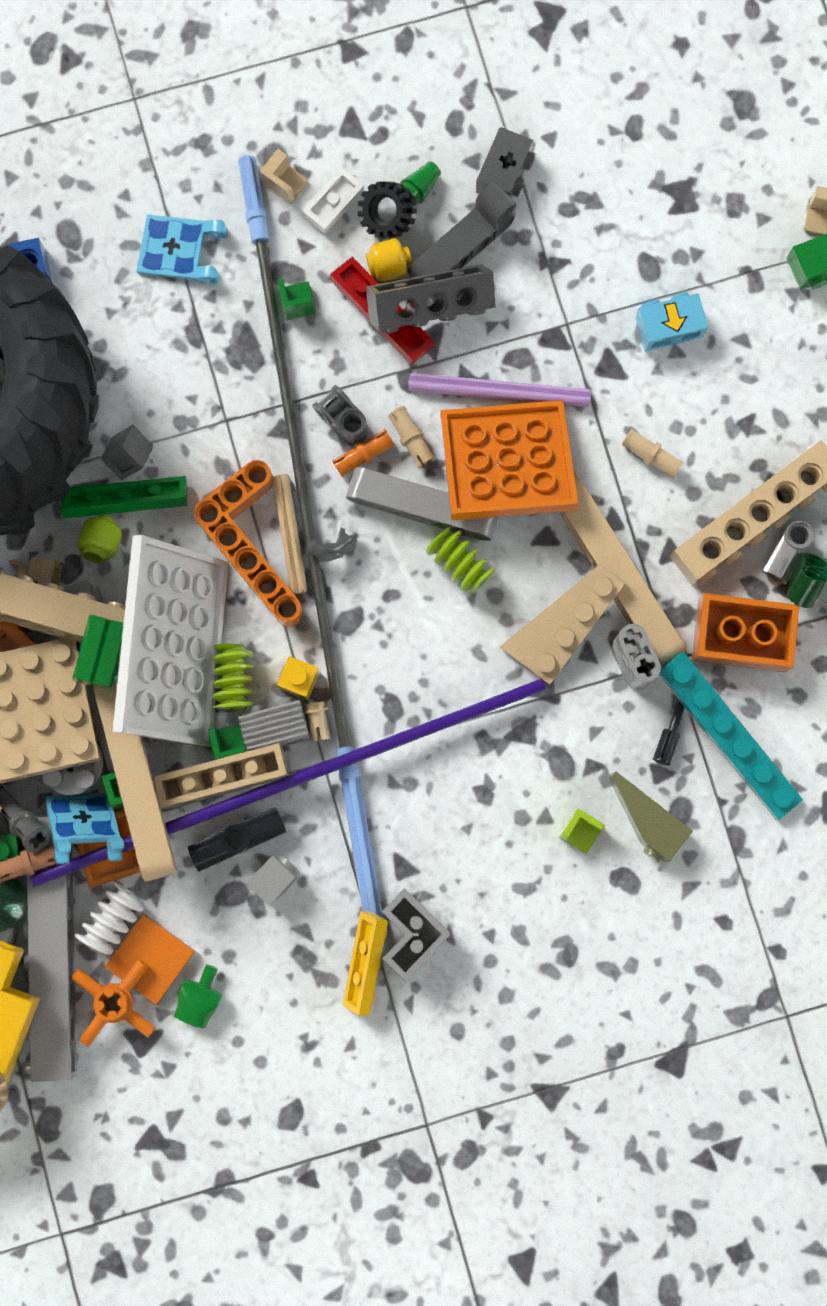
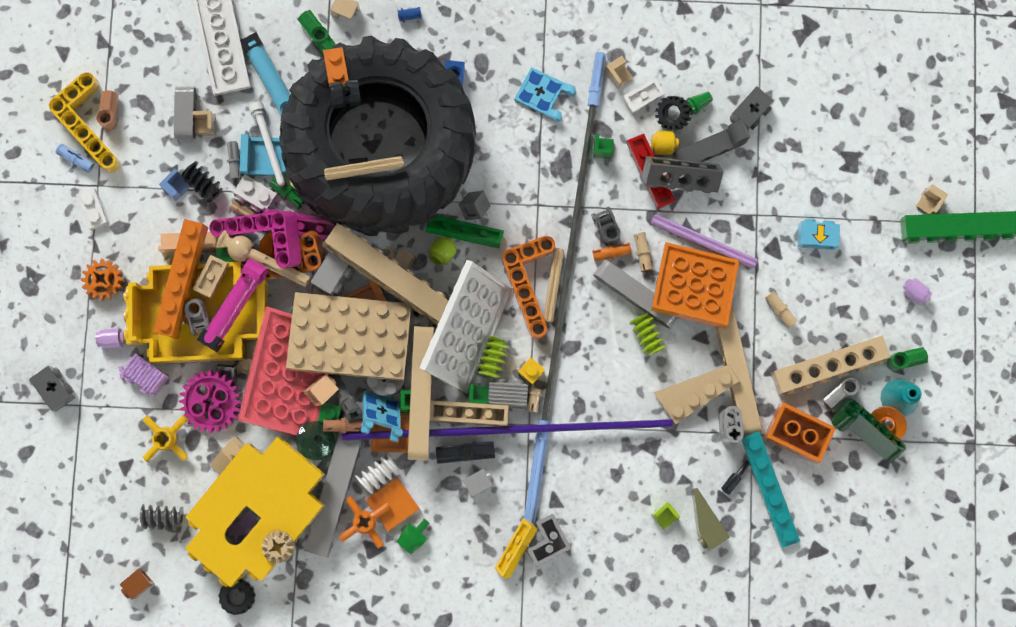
camera: 10 degrees right, 0 degrees up
(99, 653) = (425, 320): green brick -> none
(331, 551) = (572, 303): dark grey piece -> none

